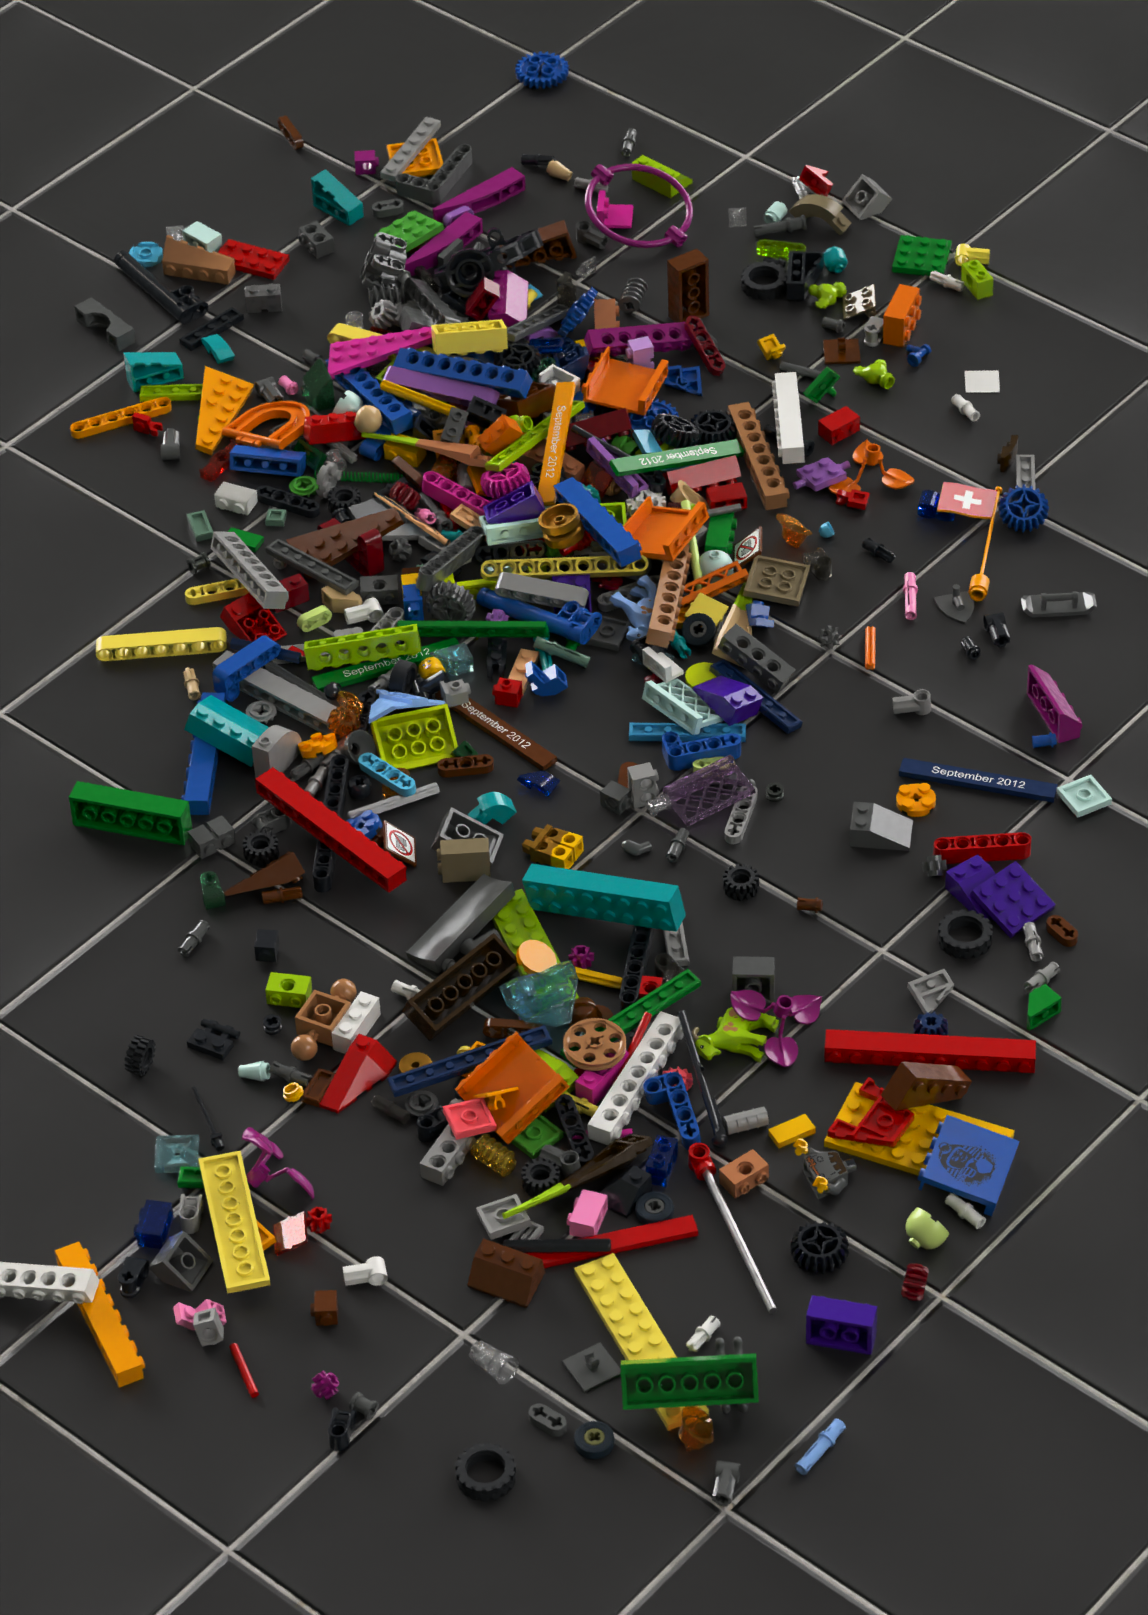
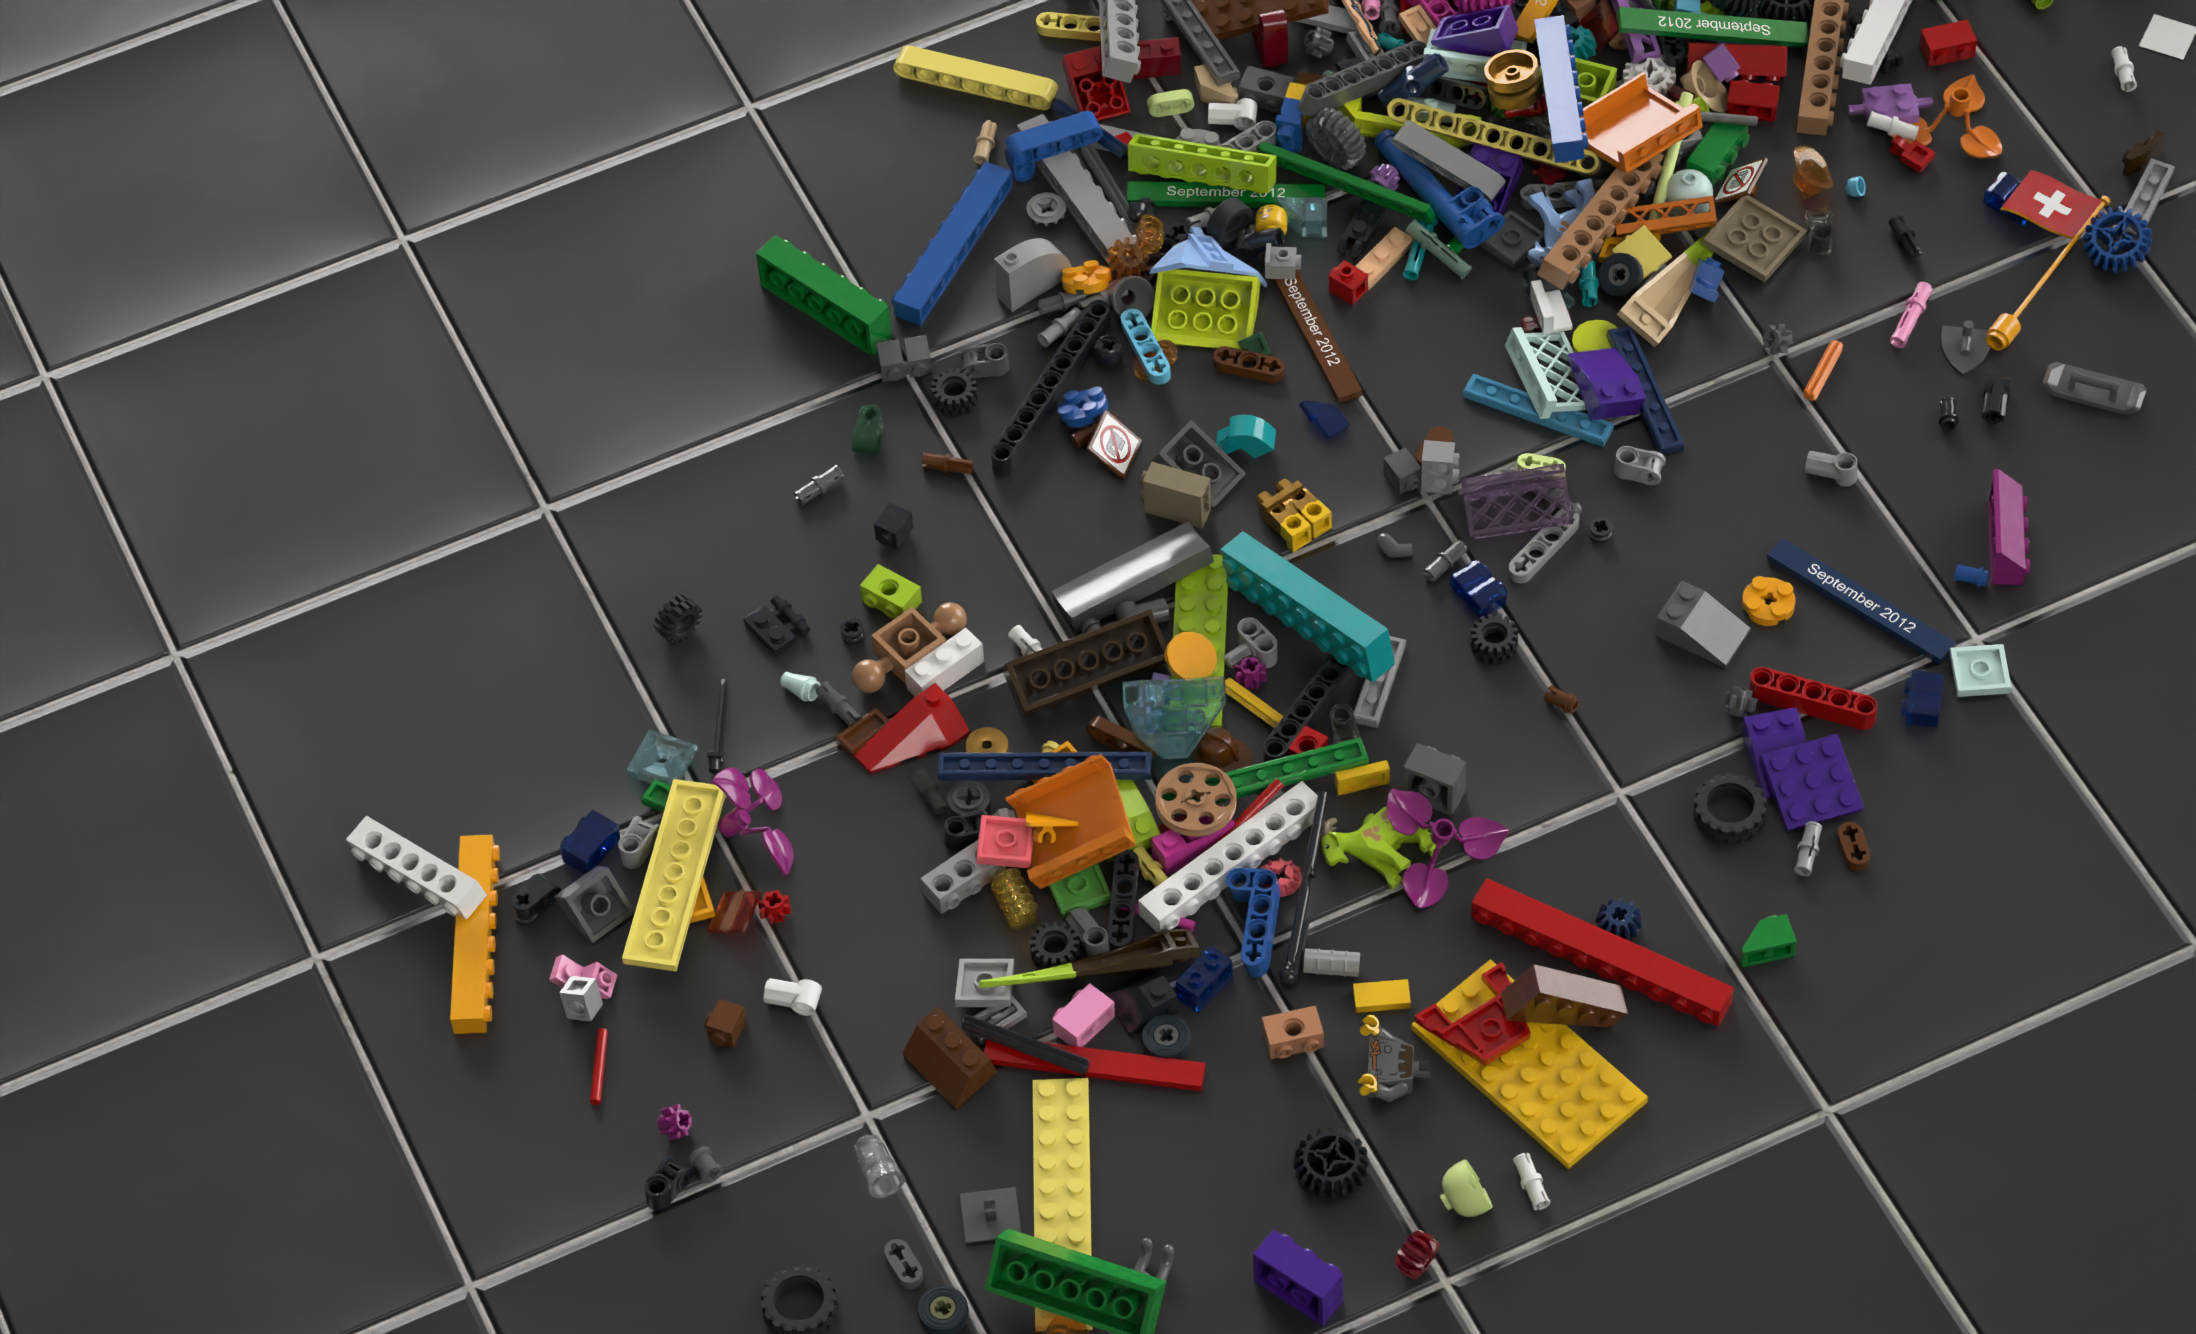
camera: 25 degrees right, 10 degrees up
(225, 728) = (987, 216): teal slope -> none
(277, 872) = (957, 434): reddish brown wedge -> none
(292, 1092) = (829, 729): yellow plate -> none
(331, 829) = (1037, 400): red brick -> none
(396, 801) = (1140, 384): light grey axle -> none
(492, 544) = (1423, 74): none -> dark blue piece
(545, 682) = (1399, 283): blue brick -> none
(571, 935) = (1258, 644): none -> light grey beam
(658, 804) = (1449, 498): clear bush -> none
(682, 755) = (1512, 440): blue beam -> none
(696, 478) = (1722, 63): none -> medium lavender brick
(699, 997) = (1362, 777): none -> yellow tile
(703, 1334) = (1136, 1224): white axle -> none
(704, 1169) = (1249, 1009): flat silver piece -> none
(712, 854) = (1478, 588): none -> clear blue brick
(756, 658) = (1653, 305): dark grey brick -> none
(777, 743) = (1637, 465): none -> light grey piece
(833, 484) = (1892, 125): none -> white pin
(931, 990) = (1647, 870): light grey wing -> none
(969, 1161) = (1565, 1121): blue panel -> none
(1042, 977) = (1793, 901): light grey pin -> none
(1057, 824) = (1924, 698): none -> clear blue brick

